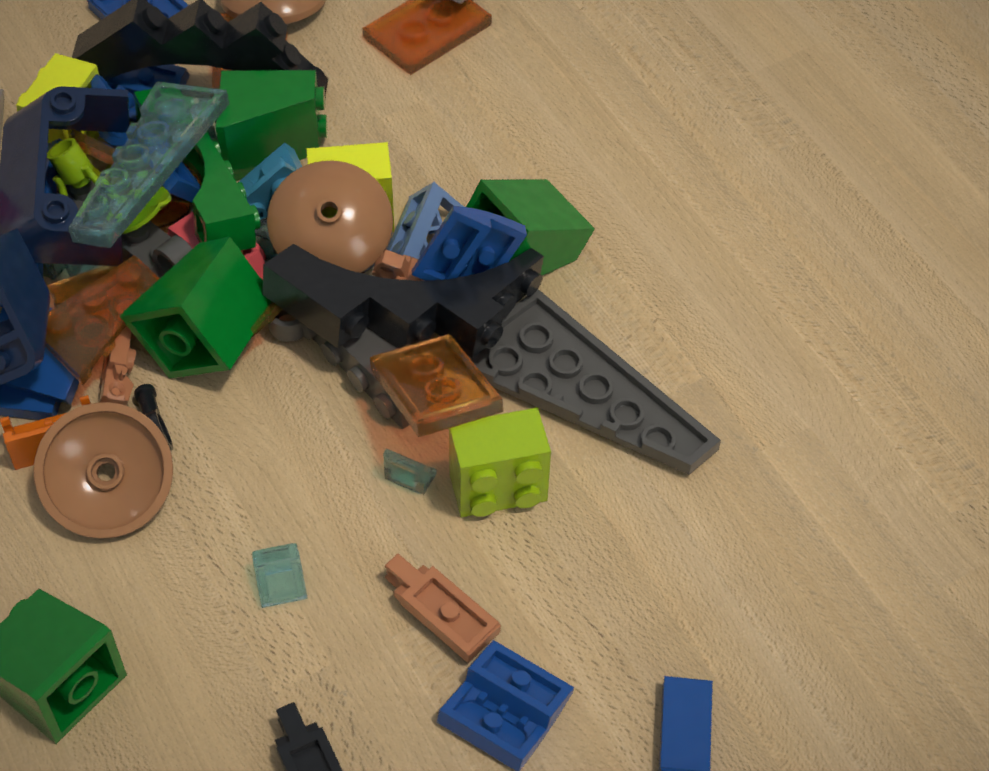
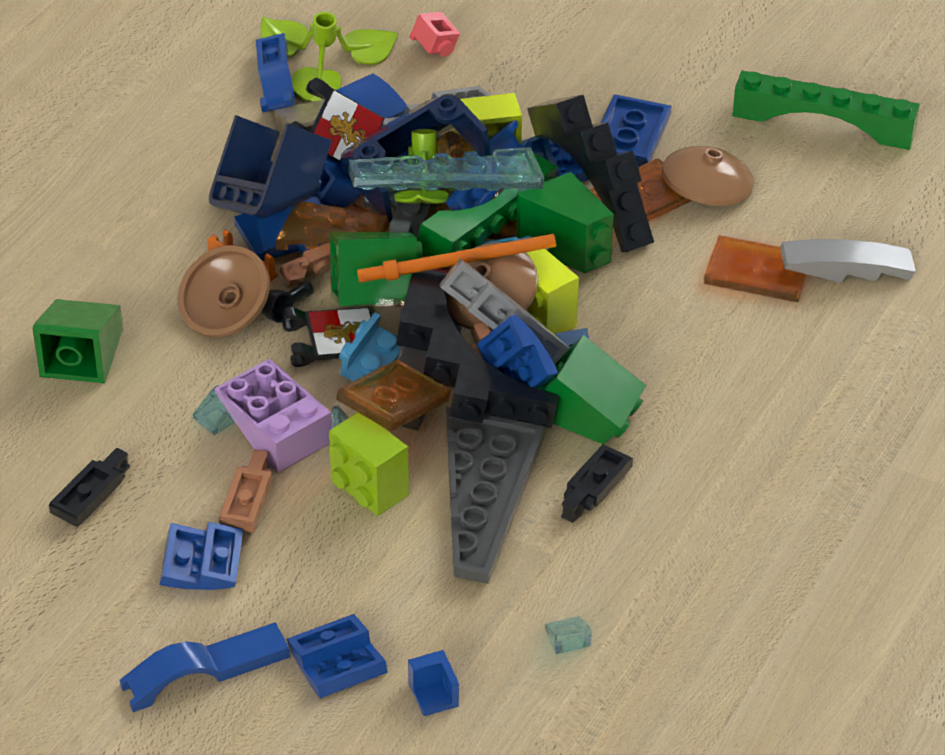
camera: 60 degrees right, 10 degrees down
(243, 401) = (327, 332): none -> flag
(261, 281) = (392, 270): none -> orange bar
(310, 383) = (369, 350): none -> dark azure bracket
(340, 516) = (276, 414): none -> lavender slope
(379, 229) = (494, 306): none -> light grey slope
(638, 290) = (594, 481): none -> black hinge
(744, 640) = (337, 655): none -> blue slope
(831, 415) = (569, 634): none -> clear light blue slope
(845, 566) = (433, 683): none -> blue panel

